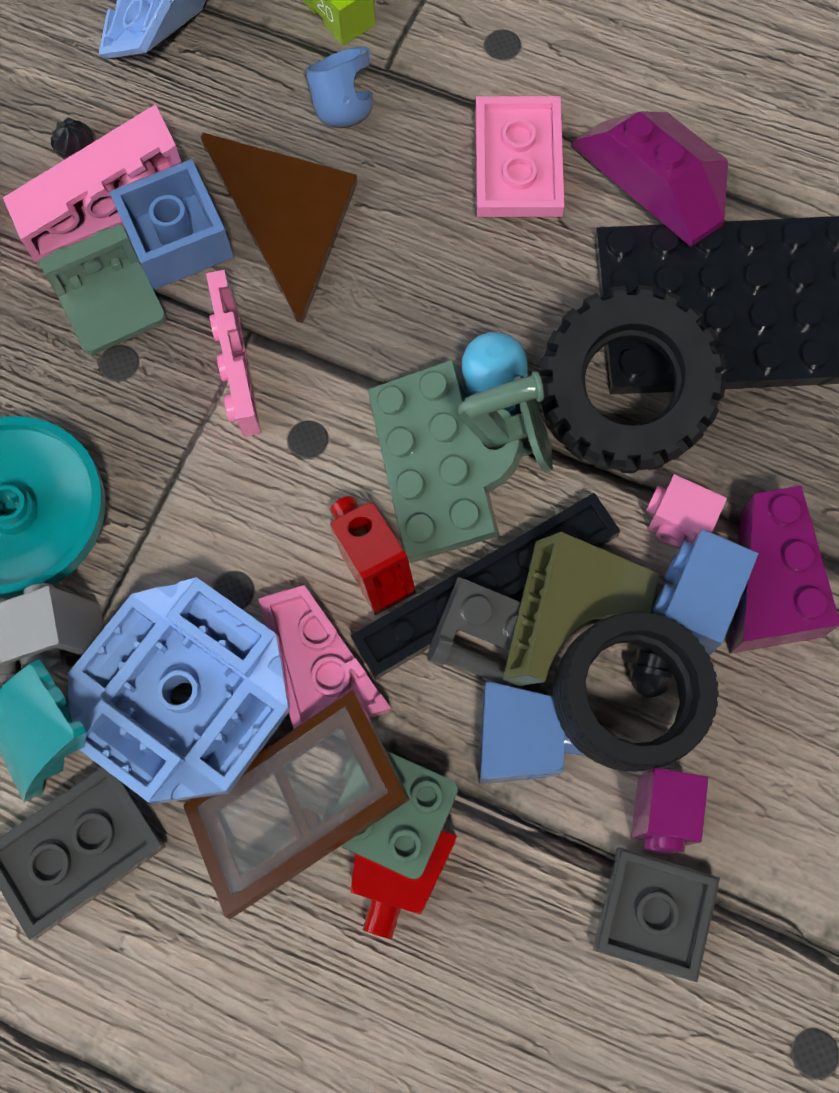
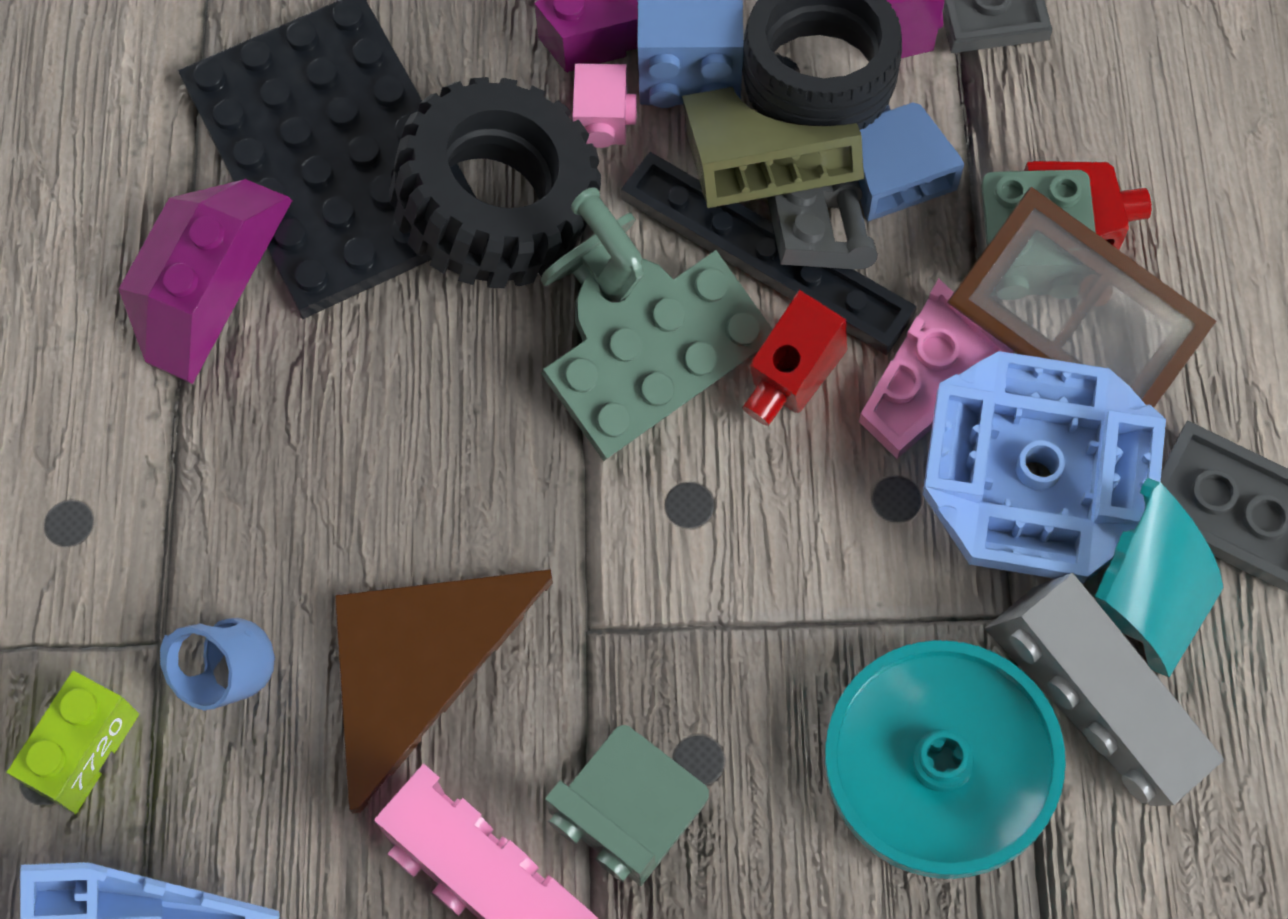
camera: 115 degrees left, 5 degrees down
(172, 224) = (505, 758): medium blue brick -> none
(233, 361) = (629, 613): bright pink wing -> none
(493, 361) = (530, 332): medium azure helmet -> none
(519, 156) = (234, 427): bright pink plate -> none

